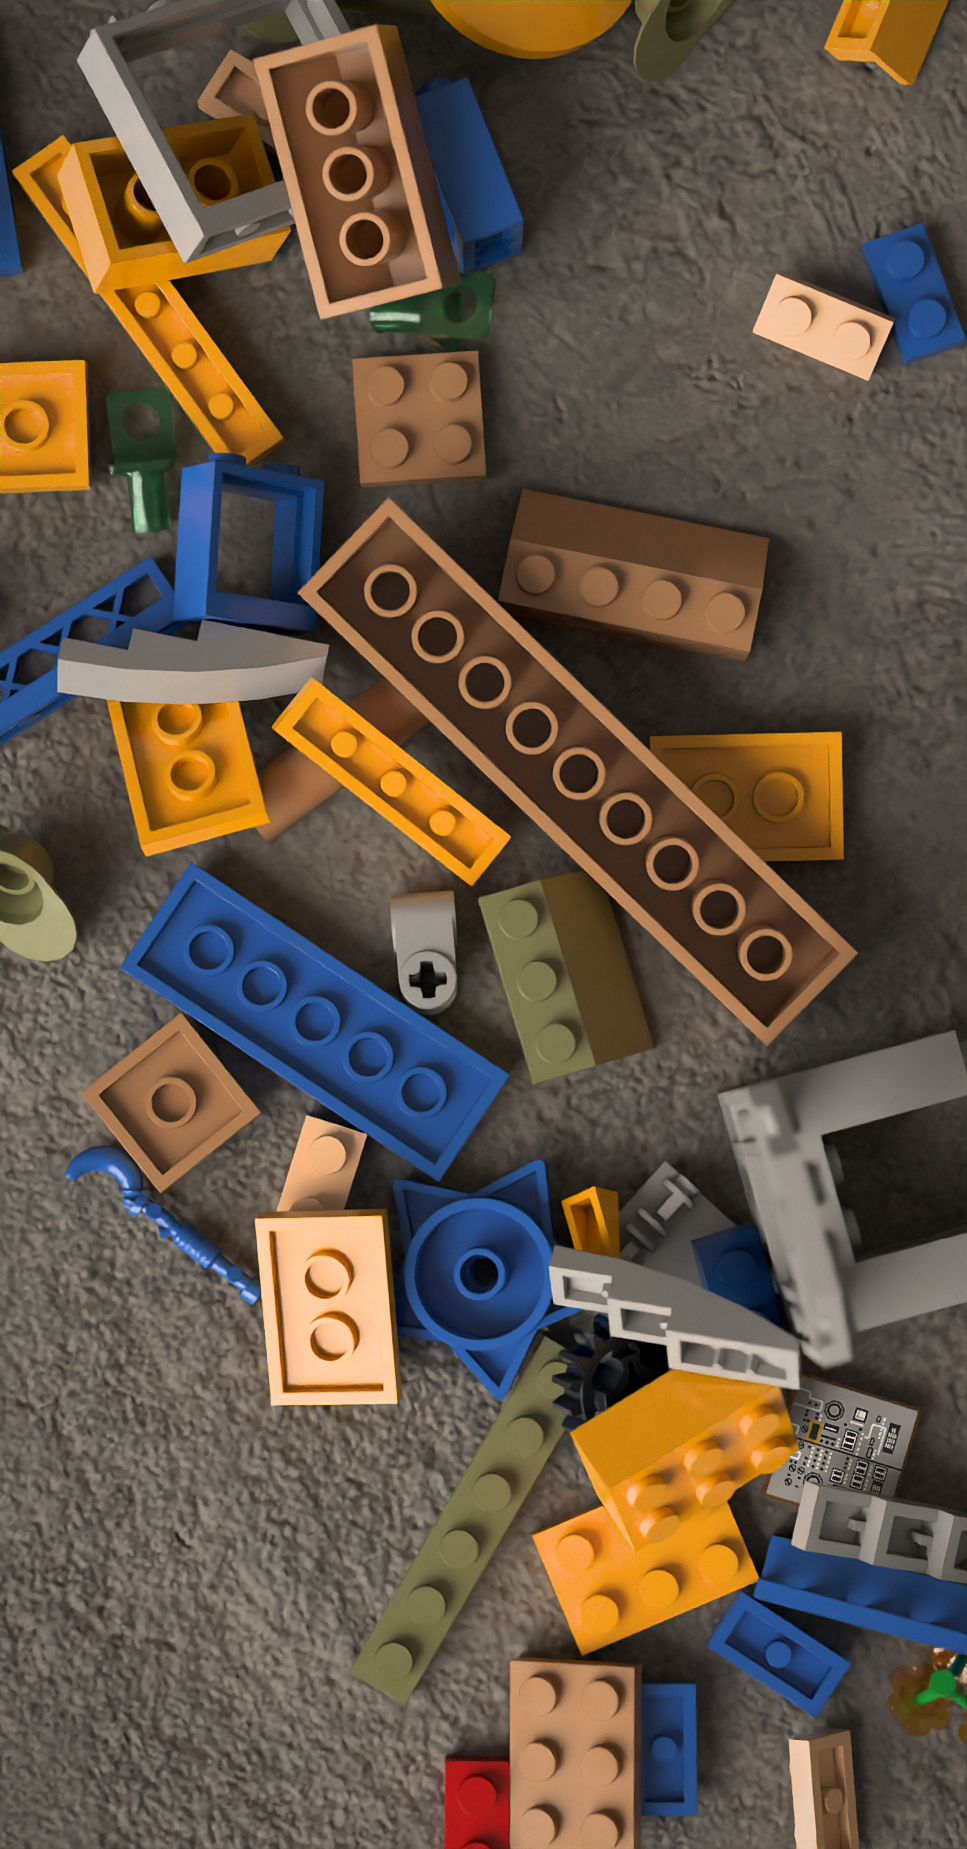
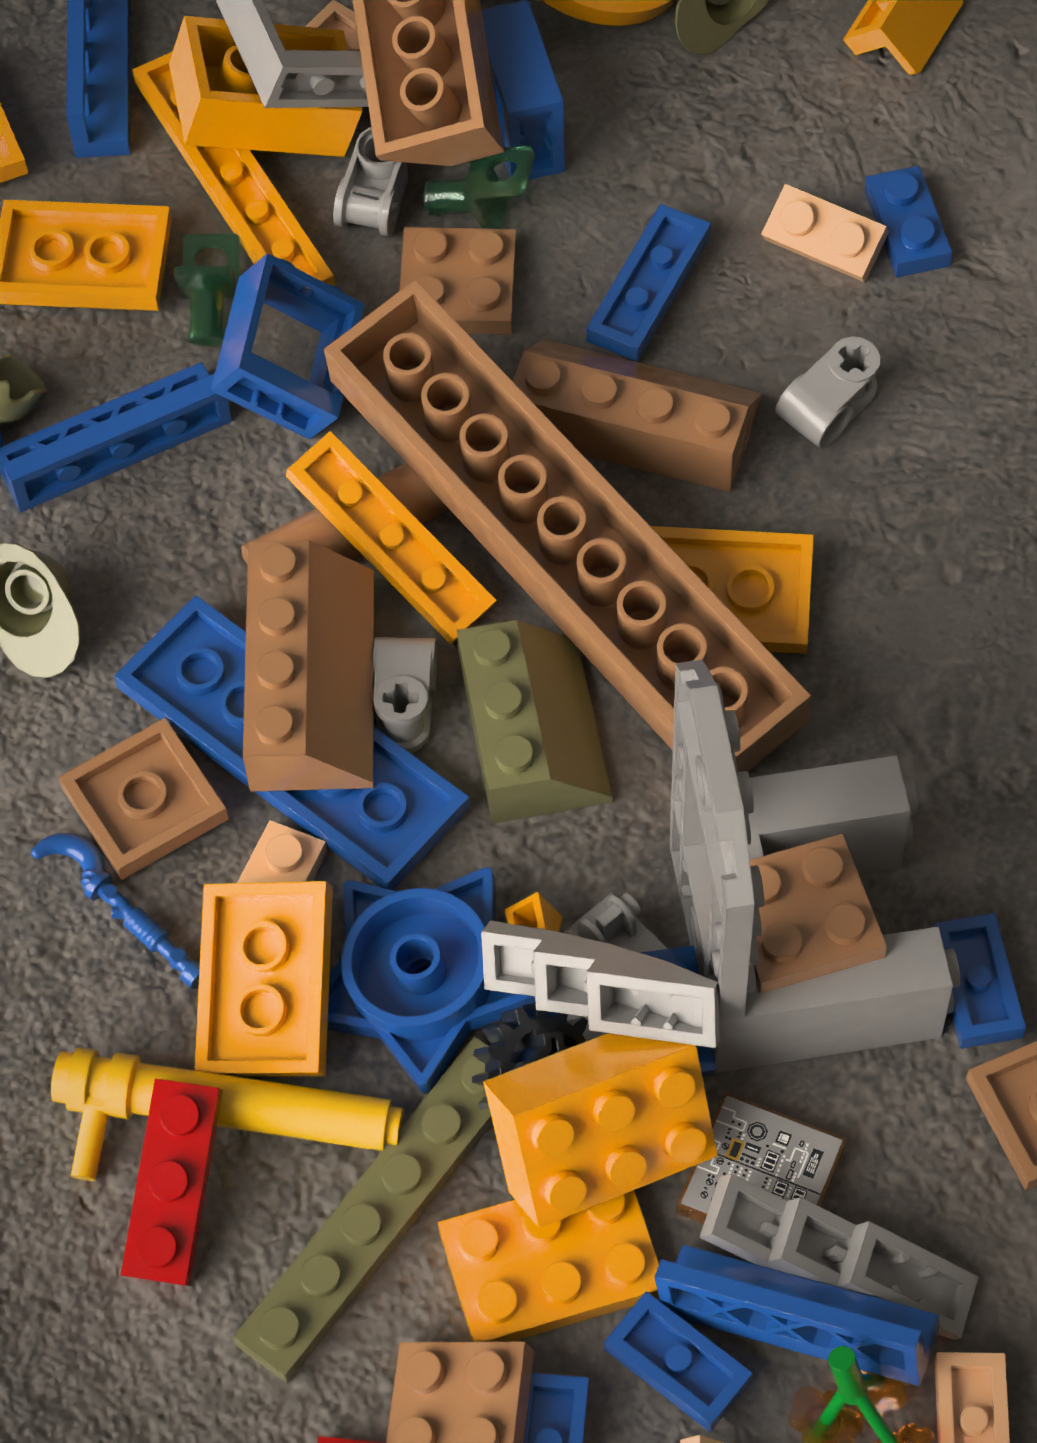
camera: 10 degrees right, 25 degrees down
(187, 771) = (203, 501): light orange plate -> none
(205, 1427) = (125, 1085): none -> yellow cylinder
(219, 667) = (215, 426): light grey slope -> none
(268, 1527) = (172, 1182): none -> red plate
(298, 322) = (371, 189): none -> light grey piece
(328, 953) = (308, 669): none -> medium nougat slope
(633, 408) = (648, 282): none -> blue plate
(841, 547) = (832, 391): none -> light grey piece
(885, 1224) = (813, 915): none -> medium nougat plate

